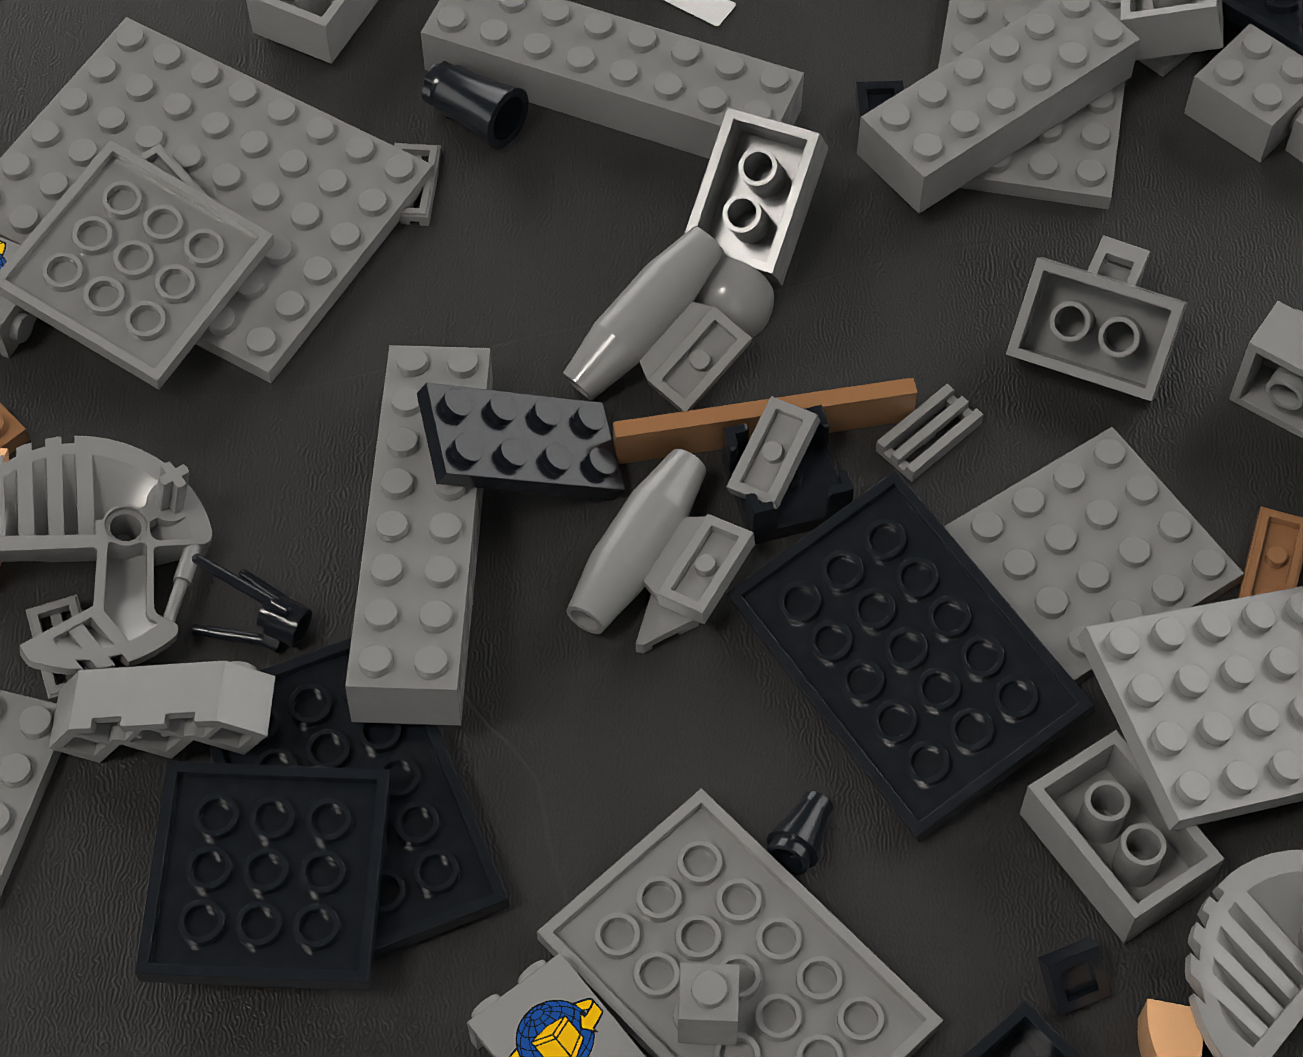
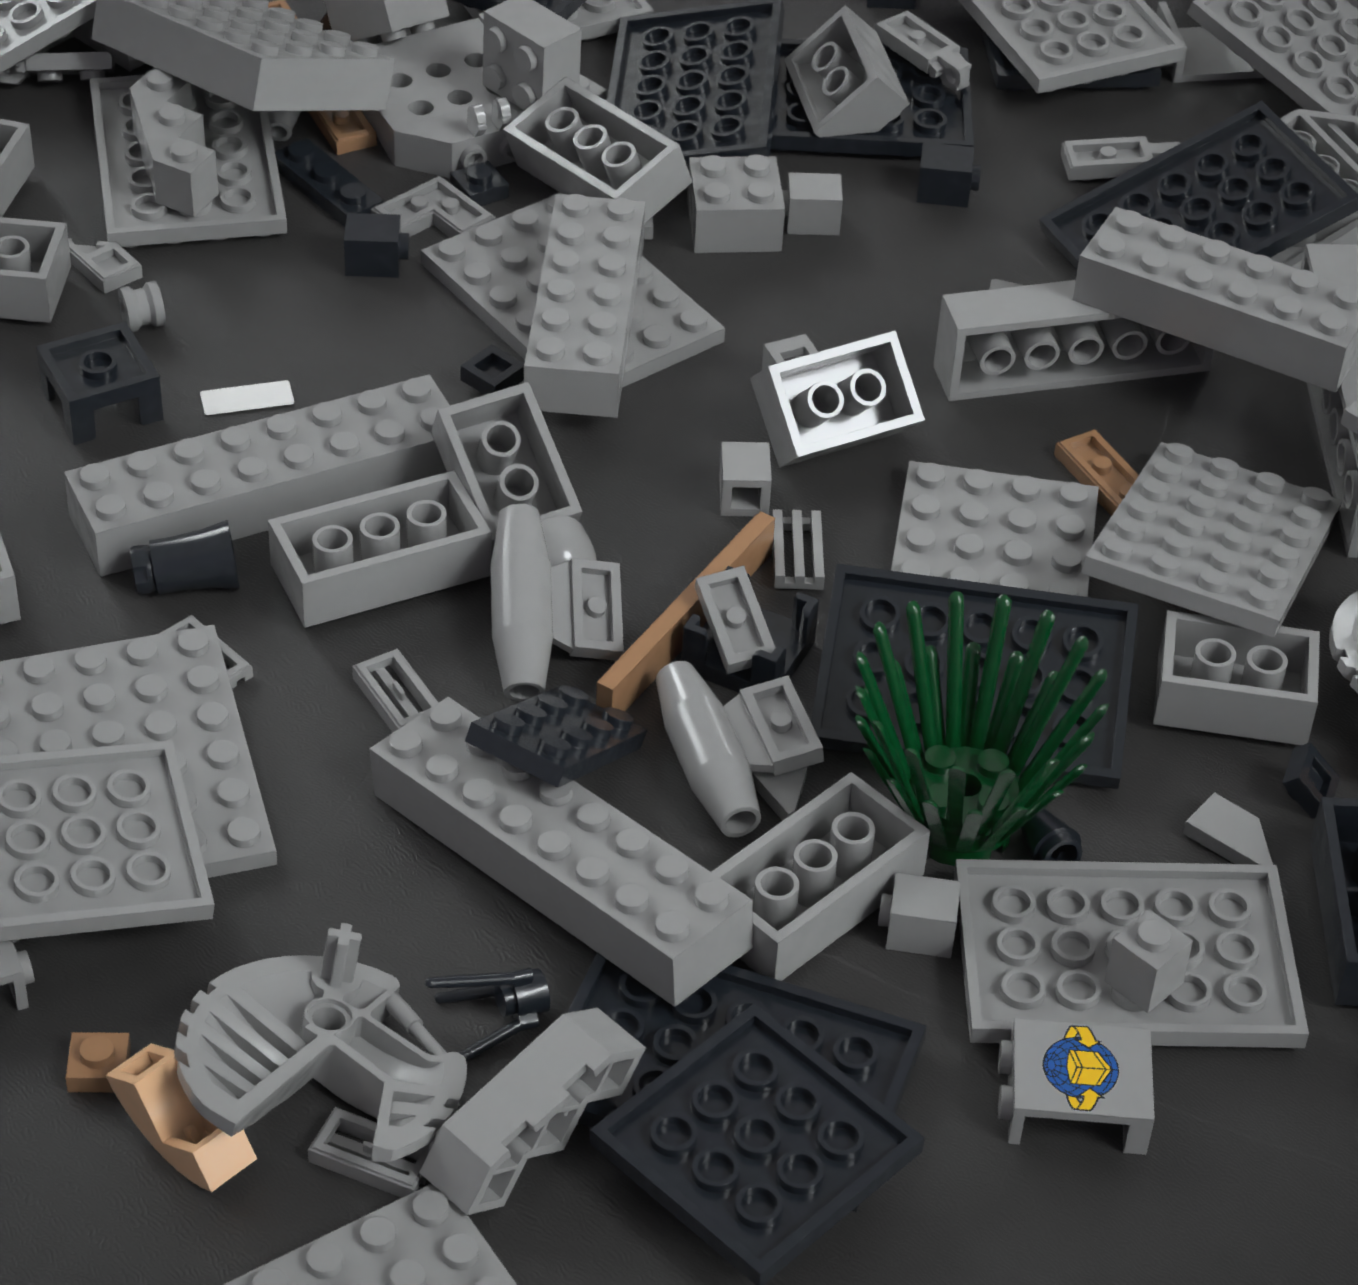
camera: 50 degrees left, 15 degrees down
(511, 283) = (379, 699): none -> light grey tile
(571, 709) = (823, 872): none -> light grey brick
(598, 187) = (379, 548): none -> light grey brick
(620, 807) = (921, 915): none -> light grey brick
(764, 697) = (966, 780): none -> dark green plant
(955, 340) = (744, 478): none -> light grey brick
(957, 959) = (1229, 832): none -> light grey tile

